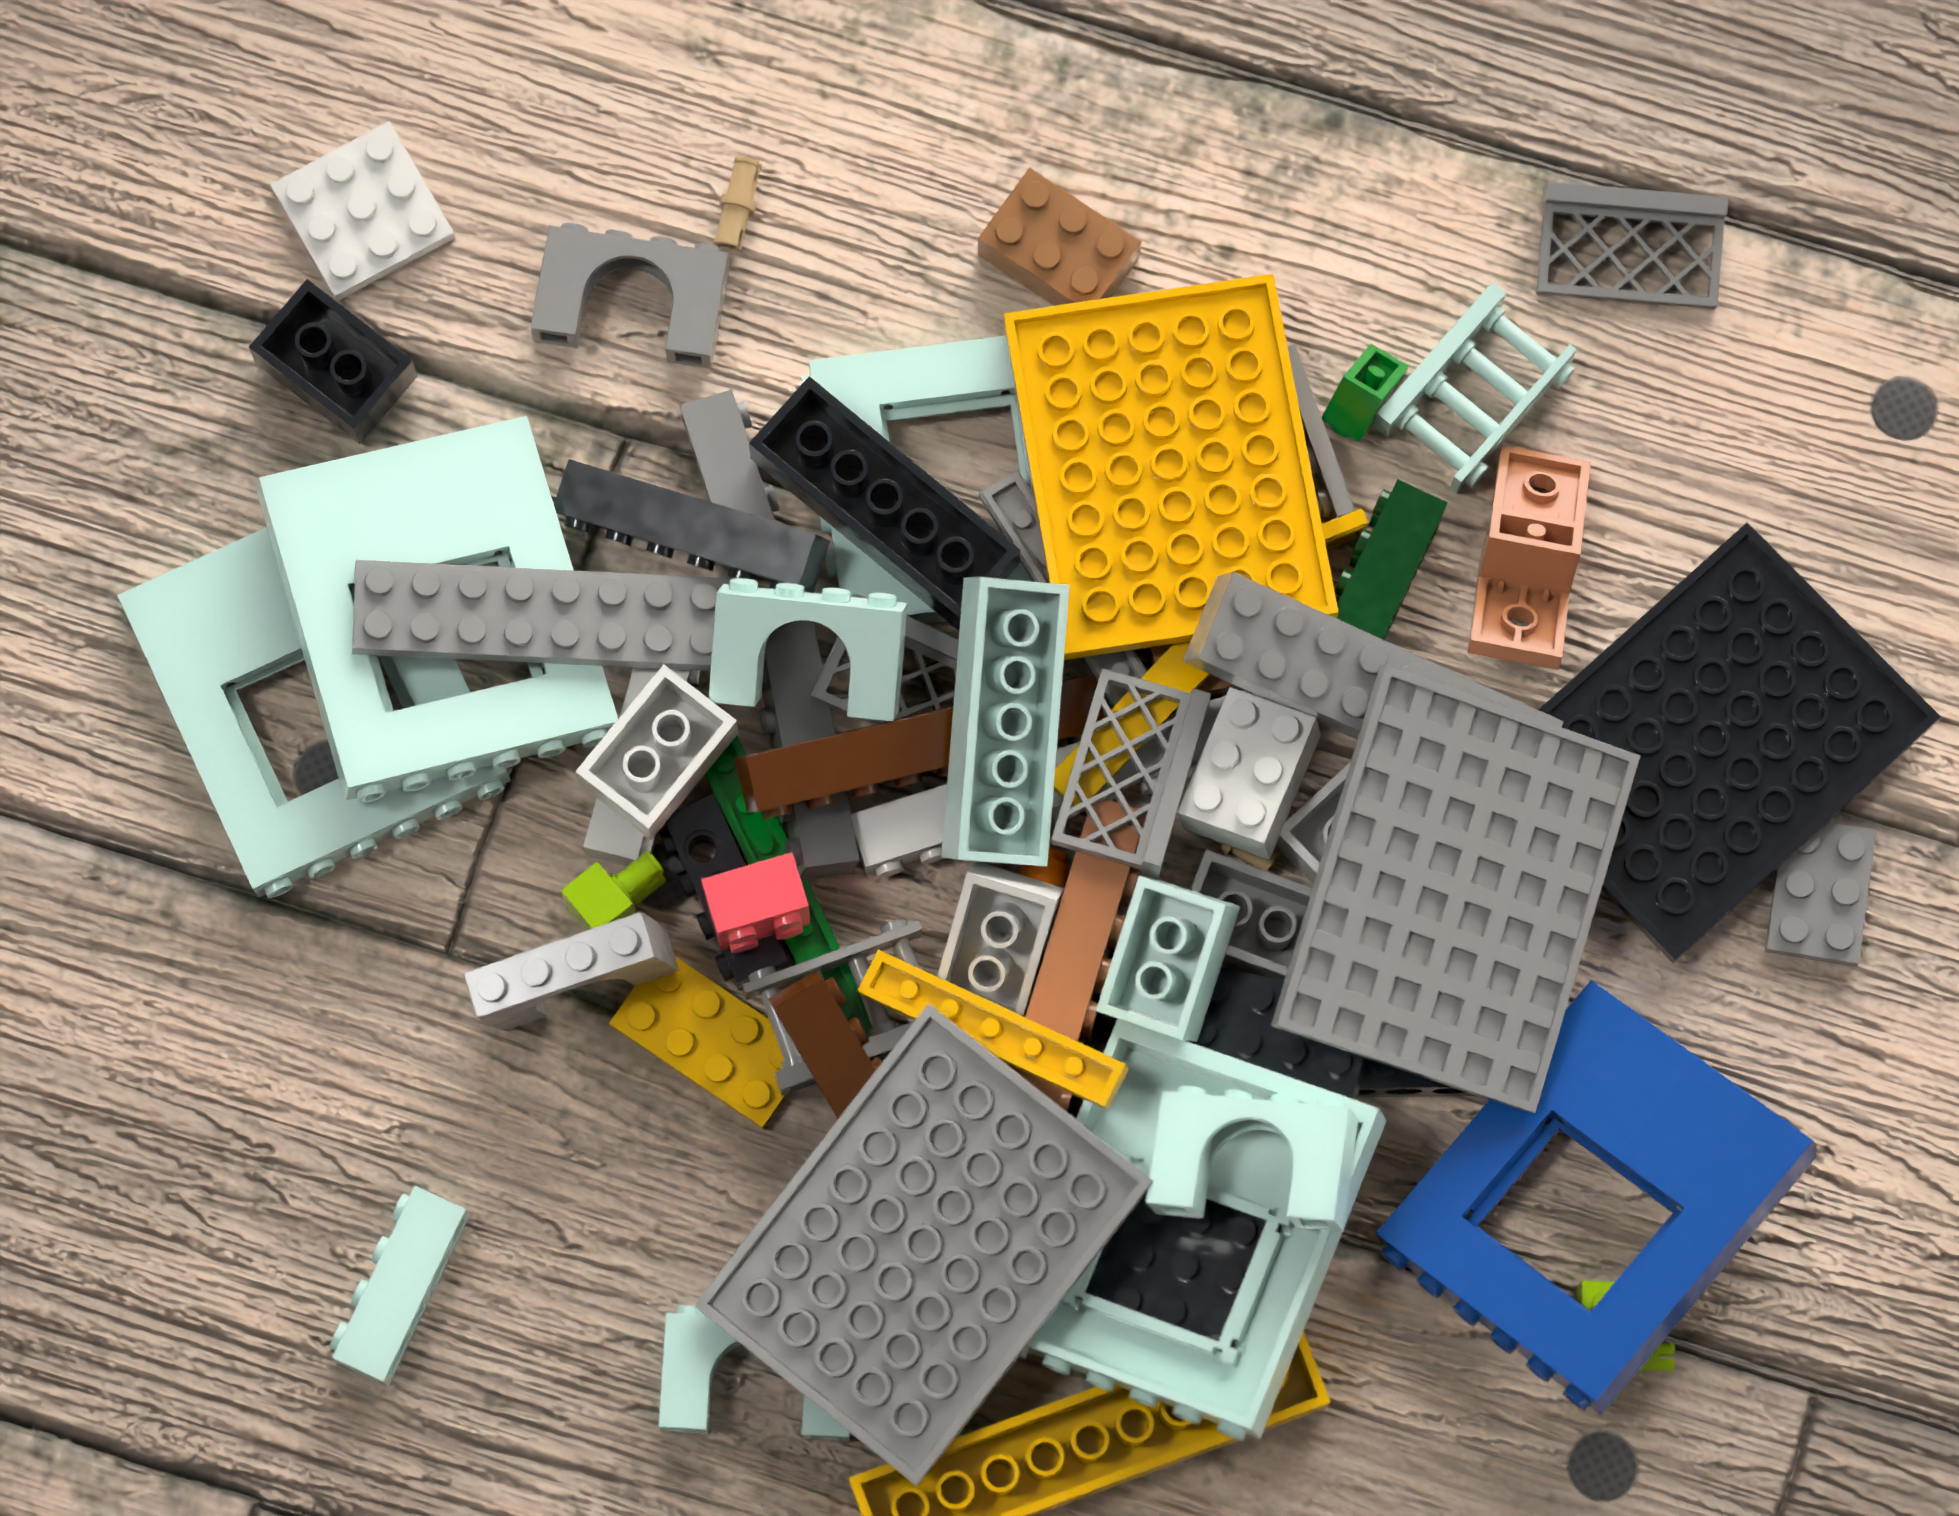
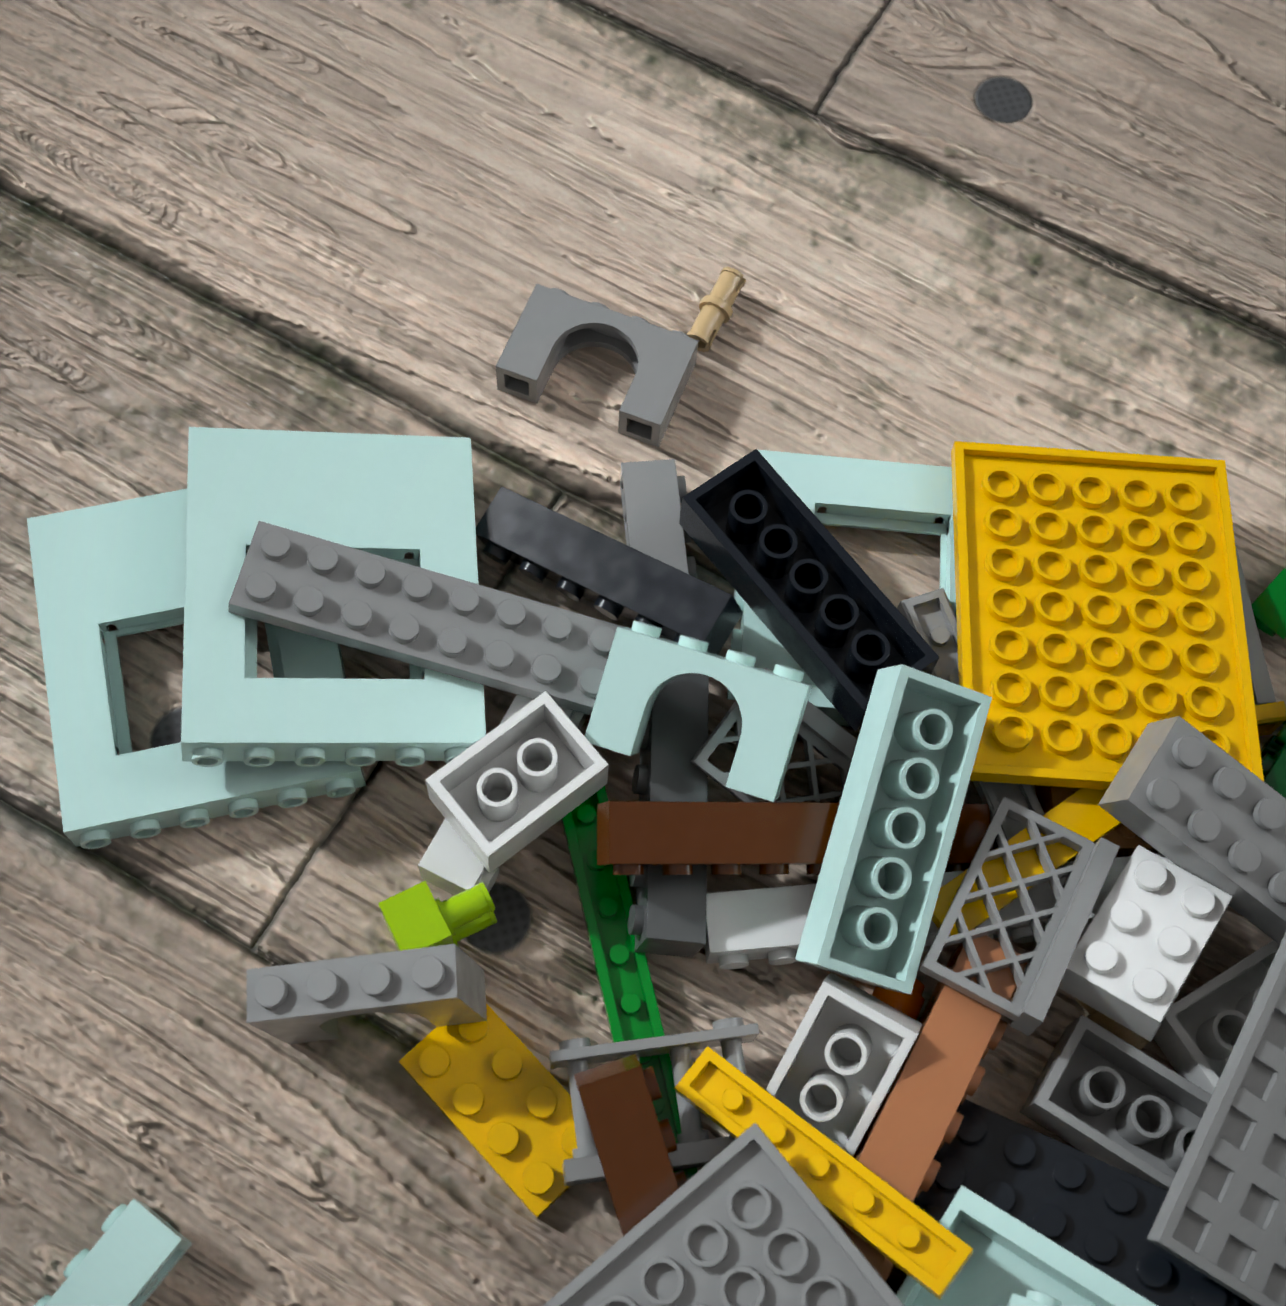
camera: 10 degrees right, 10 degrees down
(333, 361) = (302, 357): black brick -> none
(362, 211) = (370, 248): white plate -> none
(705, 823) = (551, 870): black brick -> none
(757, 903) = (586, 963): coral brick -> none
(1057, 244) = (1010, 397): medium nougat brick -> none
(1167, 958) = (1029, 1130): light aqua brick -> none

